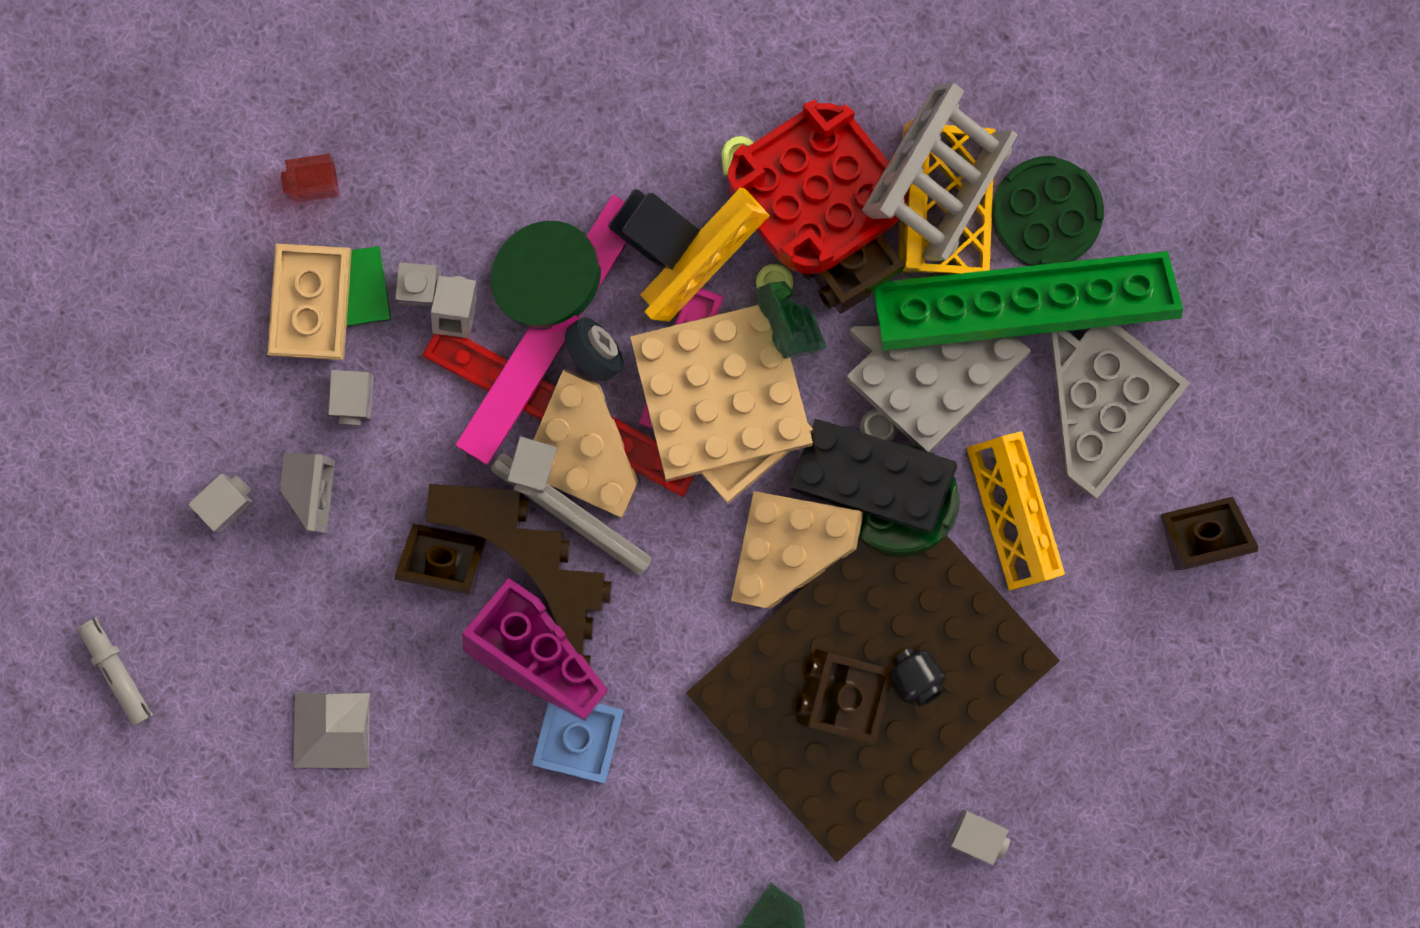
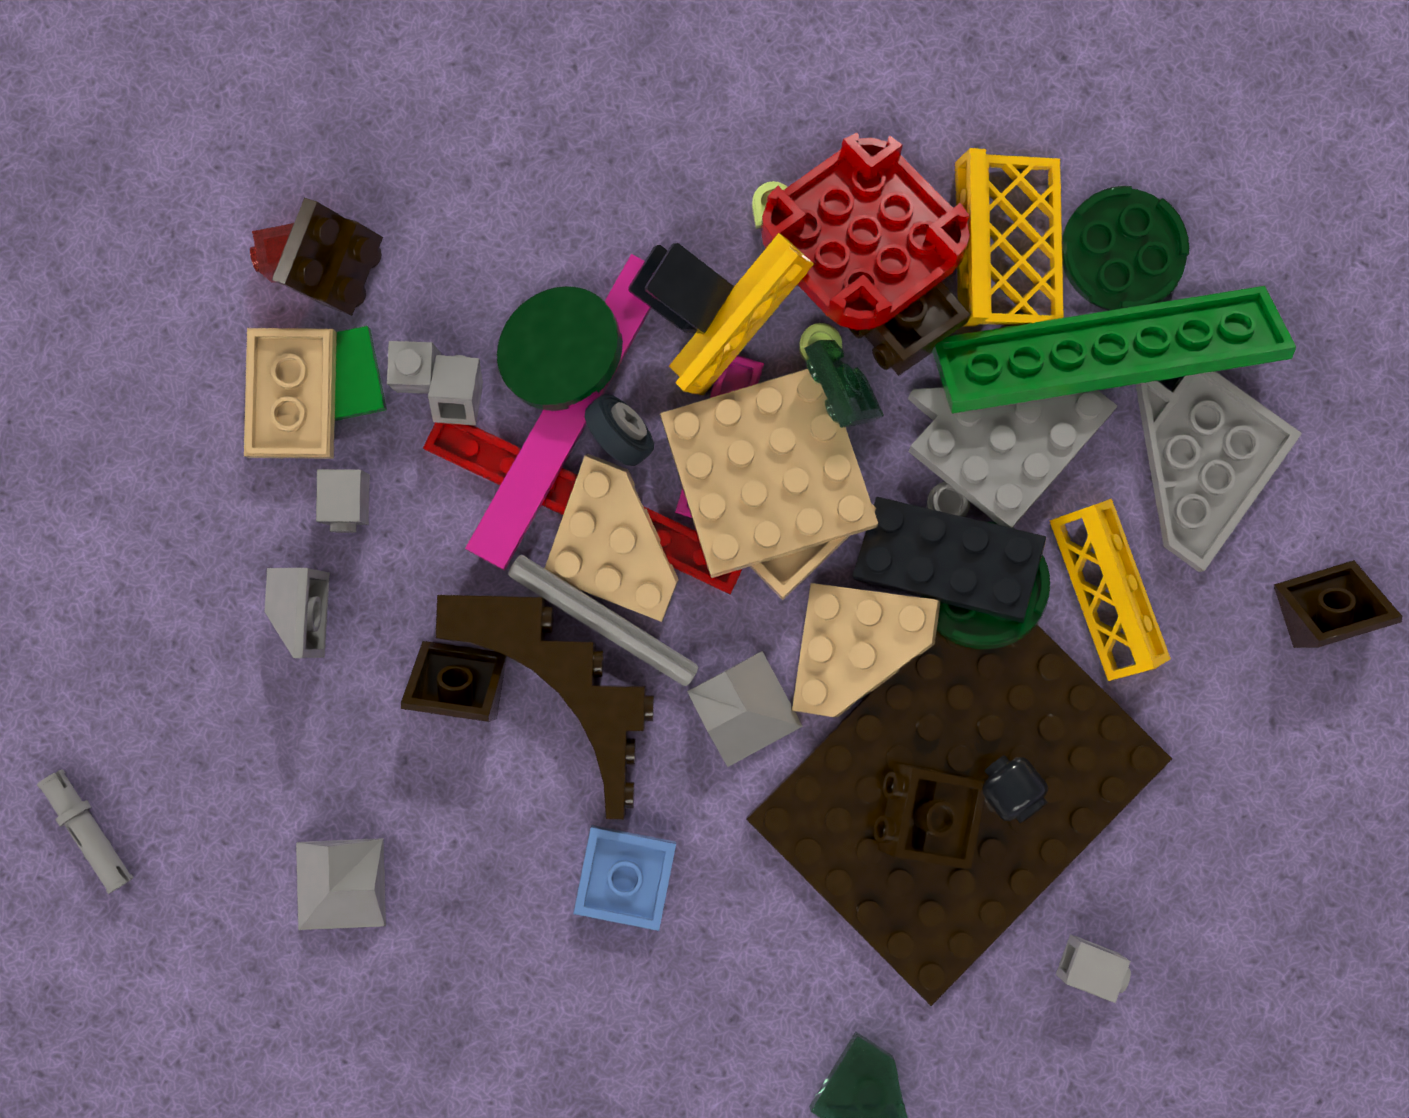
camera: 10 degrees left, 0 degrees up
(222, 501) = (199, 628): light grey brick -> none
(350, 187) = (328, 257): none -> dark brown plate
(527, 647) = (563, 781): magenta wedge -> none
(531, 466) = (554, 568): light grey brick -> none
(690, 597) = (744, 709): none -> light grey slope
(906, 169) = (971, 200): light grey fence -> none

